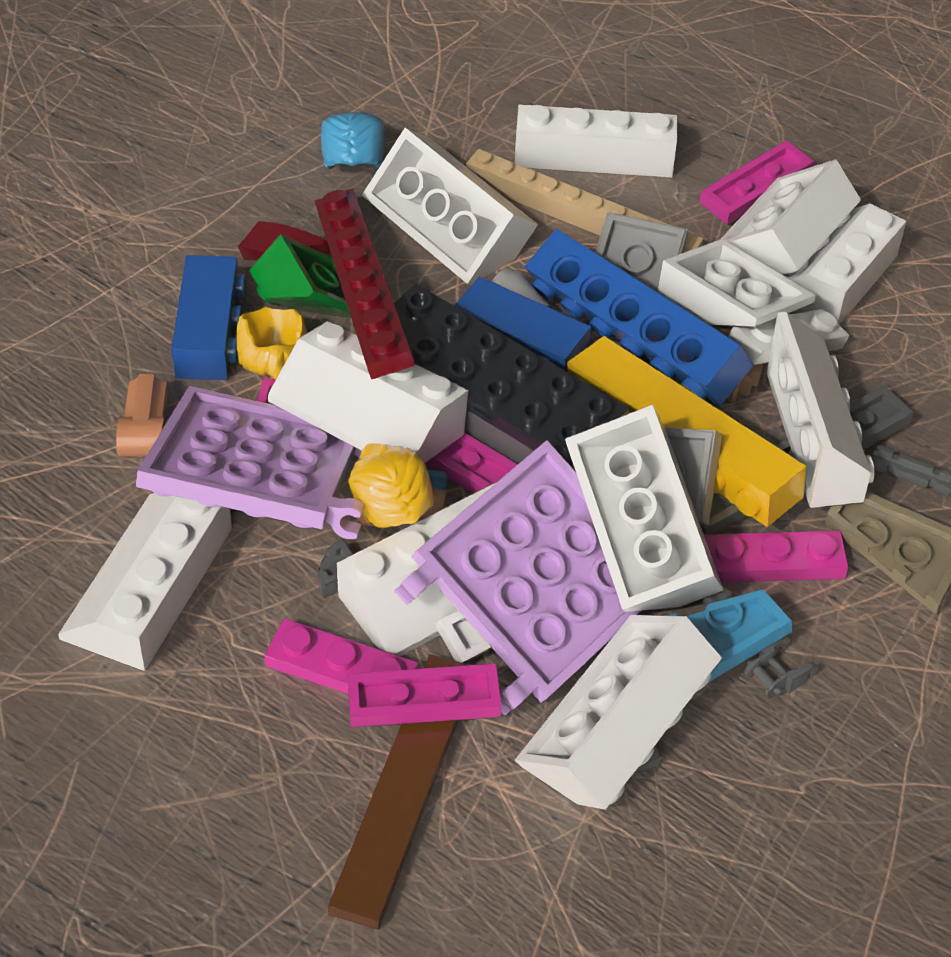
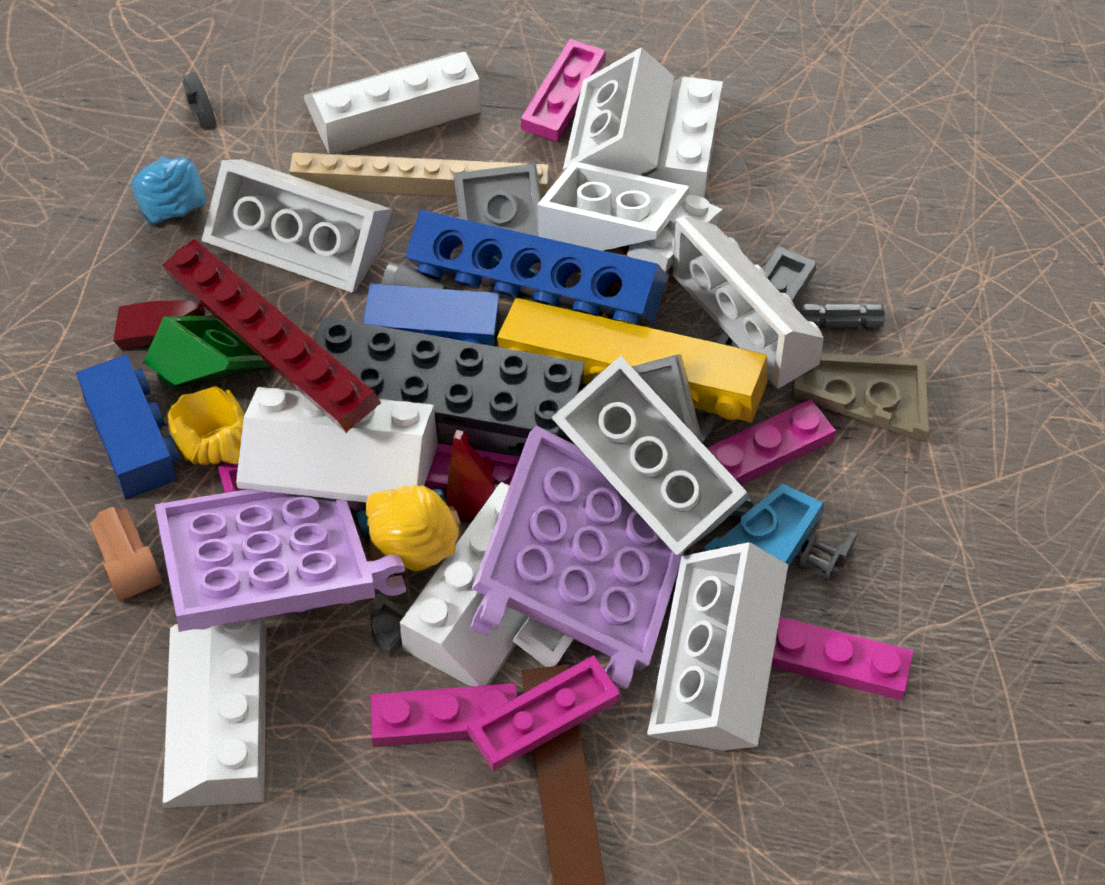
camera: 25 degrees left, 5 degrees up
(423, 80) = (198, 101): none -> dark grey tile
(471, 467) = (468, 479): none -> dark red slope
(736, 769) = (841, 658): none -> dark pink plate

